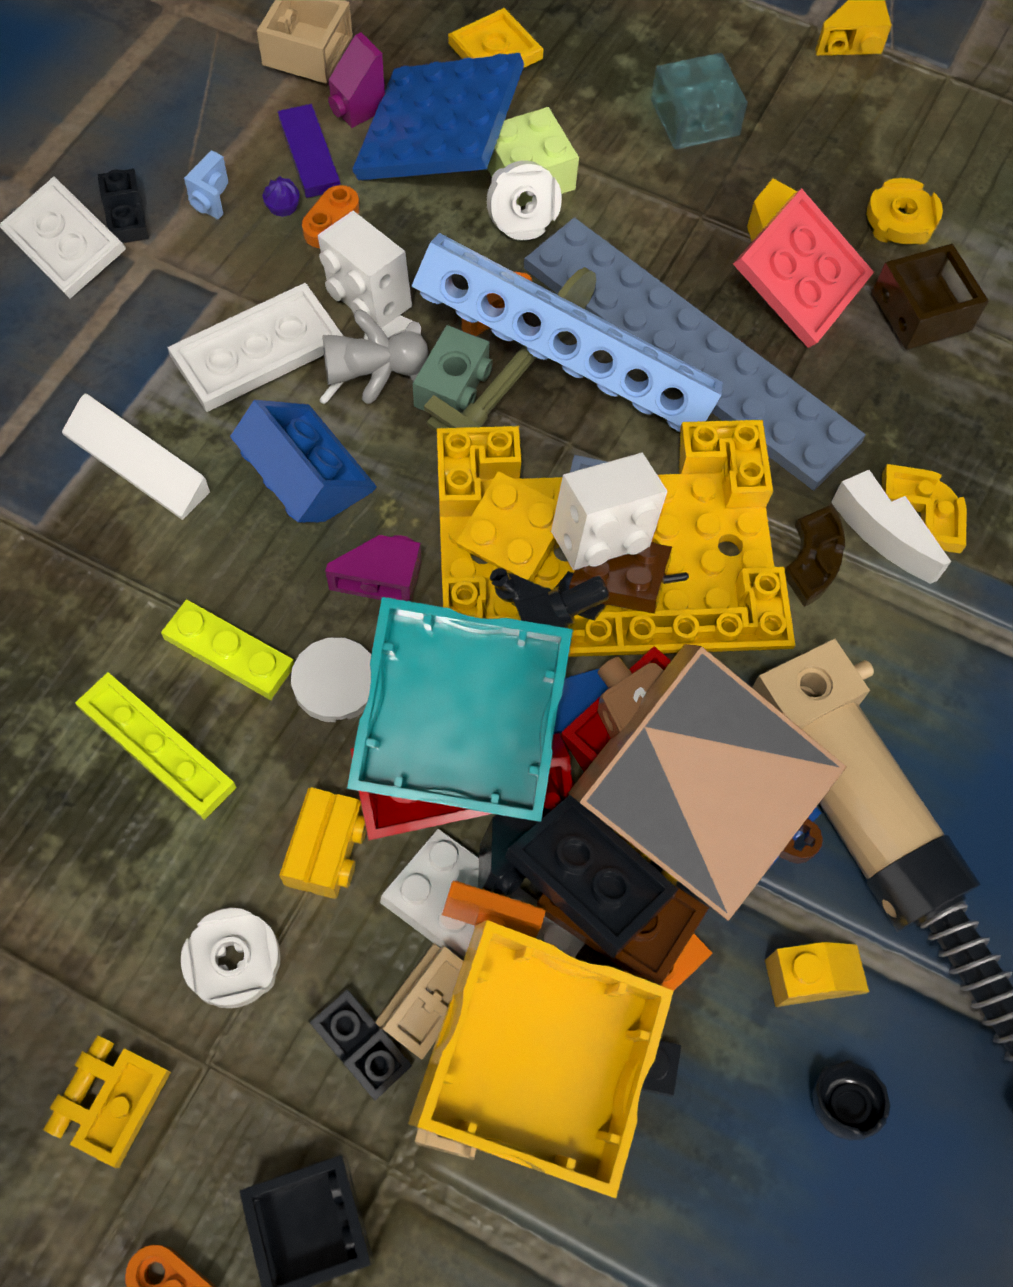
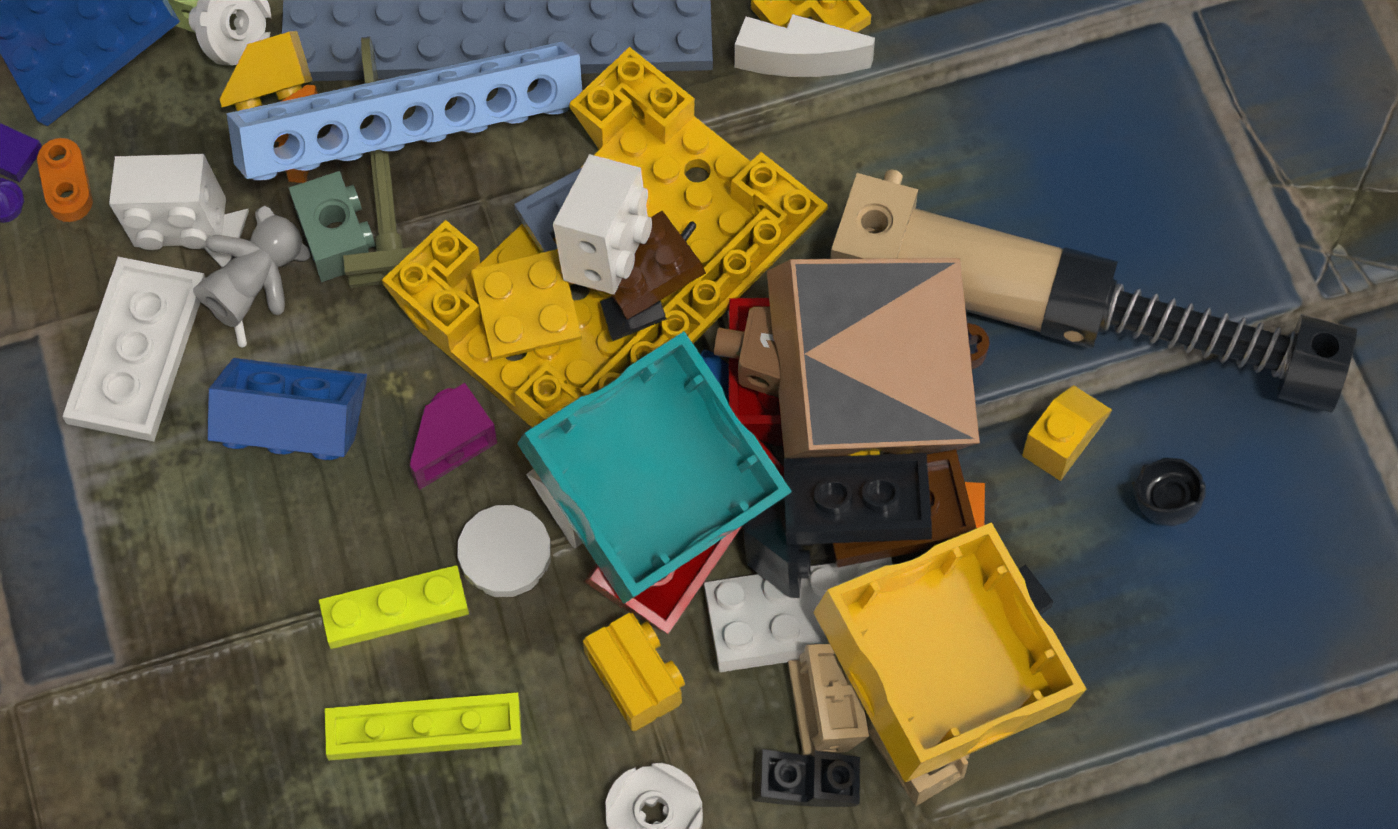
camera: 40 degrees left, 0 degrees up
(135, 457) = (137, 530): white slope -> none
(478, 905) = (800, 598): orange plate -> none
(514, 244) = (267, 68): none -> yellow slope
(546, 605) = (621, 342): black axle -> none
(819, 555) = (768, 117): dark brown tile -> none

